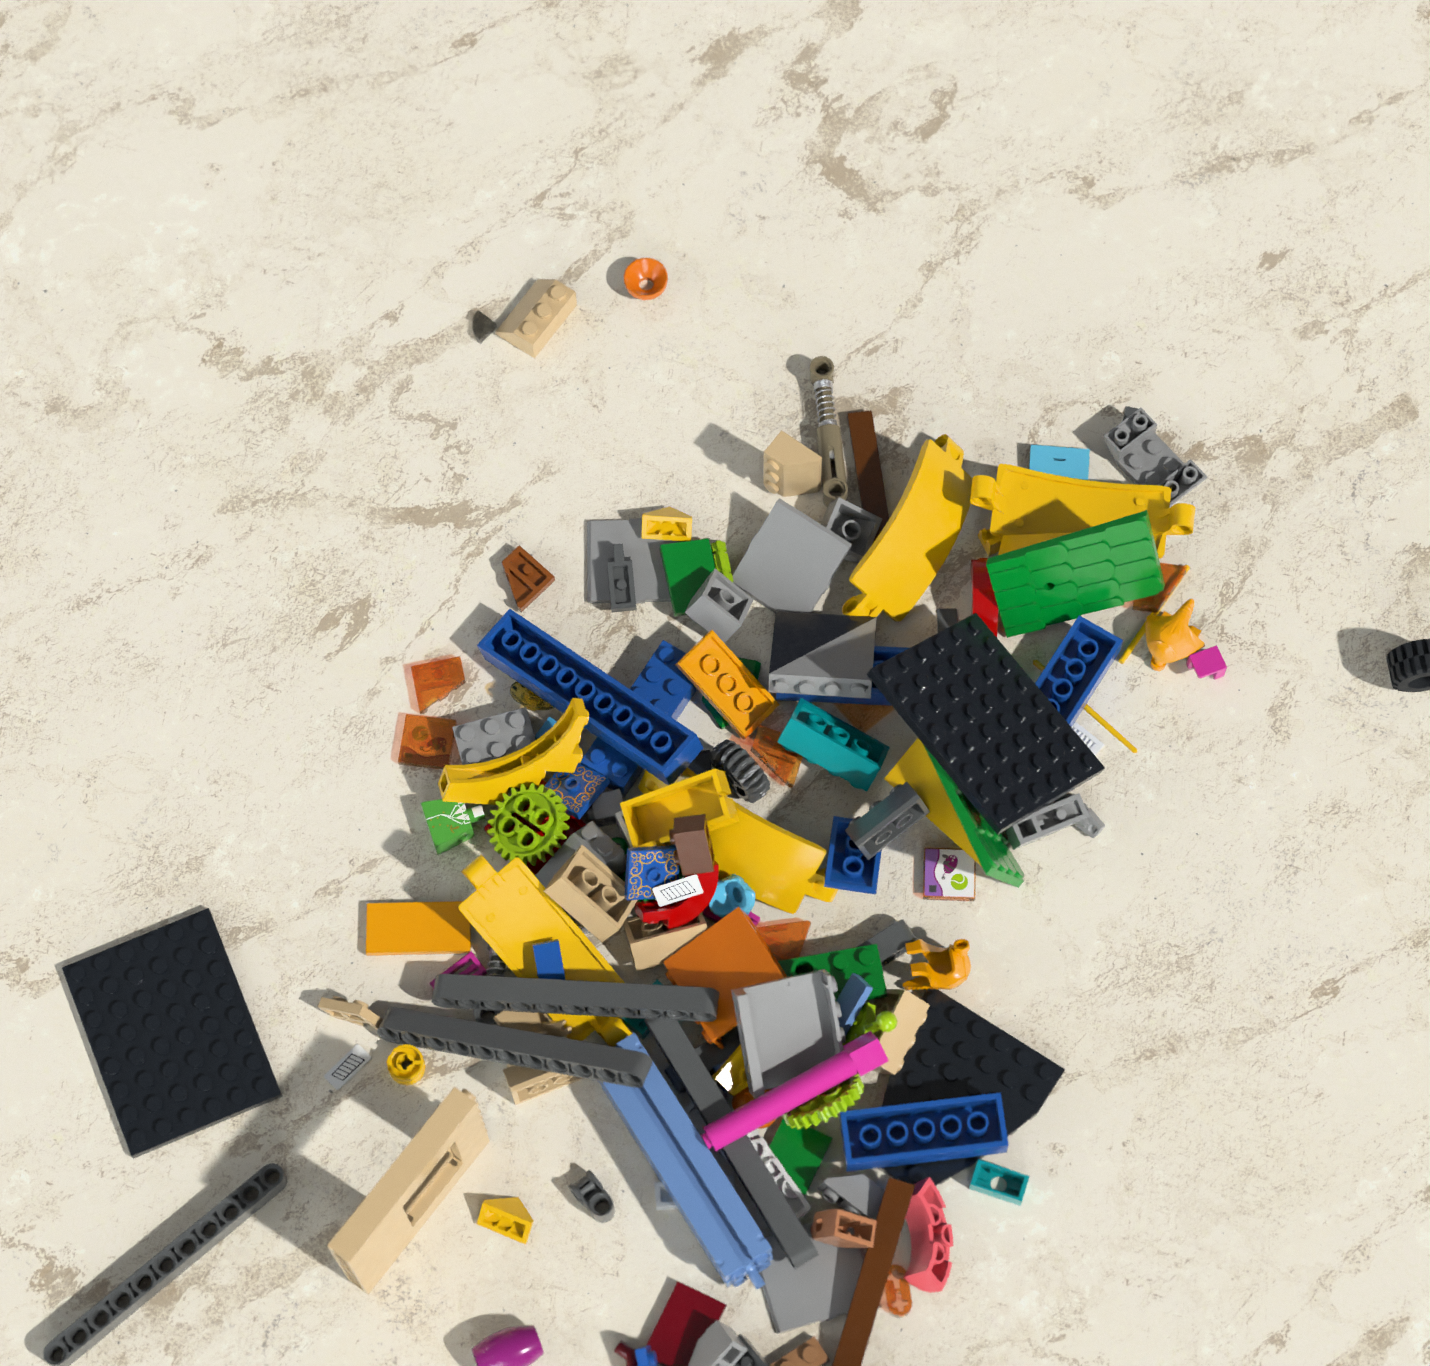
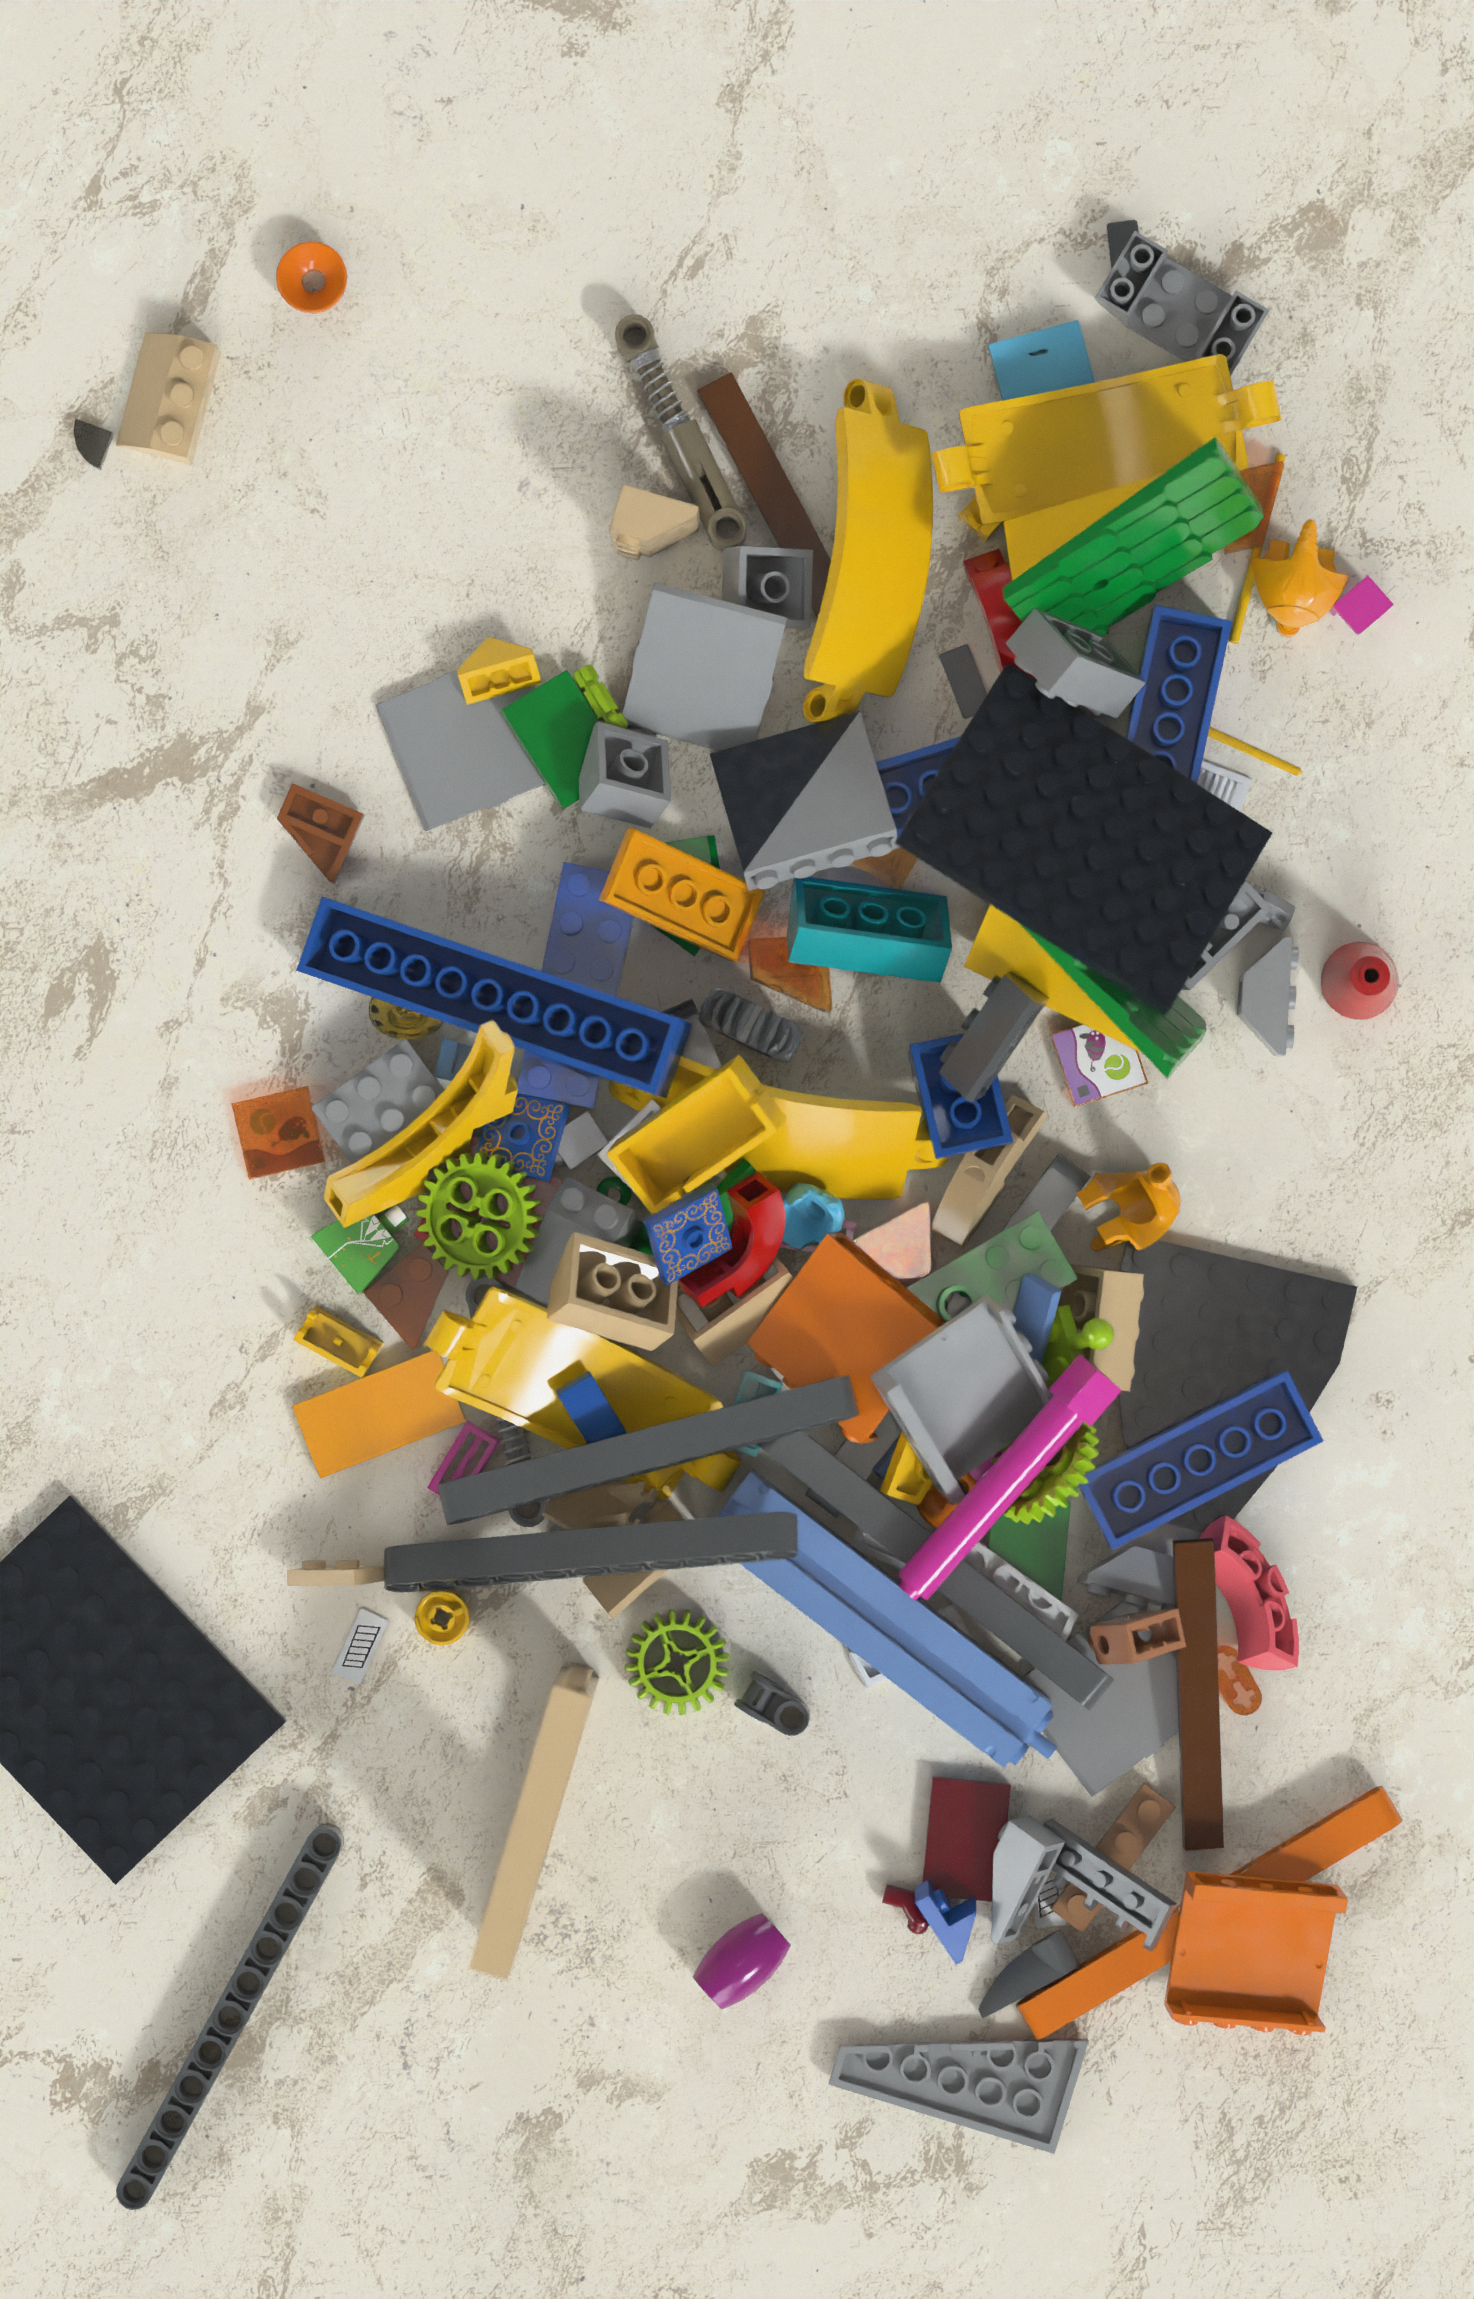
camera: 20 degrees left, 20 degrees up
(411, 875) = (338, 1341): none -> yellow hinge
(436, 680) = (254, 1035): clear orange wing -> none
(460, 856) = (409, 1293): none -> dark orange wing
(507, 1218) = (667, 1776): yellow slope -> none
(554, 1145) = (690, 1692): none -> lime gear
(621, 581) = (465, 786): dark grey hinge -> none
(677, 890) = (734, 1245): white sticker -> none
(693, 844) = (736, 1185): reddish brown brick -> none
(849, 912) = (982, 1175): none -> tan slope
(1015, 1181) = (1344, 1485): teal piece -> none
(1017, 628) = (1074, 664): none -> light grey brick
(1069, 871) = (1267, 996): none -> light grey slope
(1131, 884) = (1345, 984): none -> cone

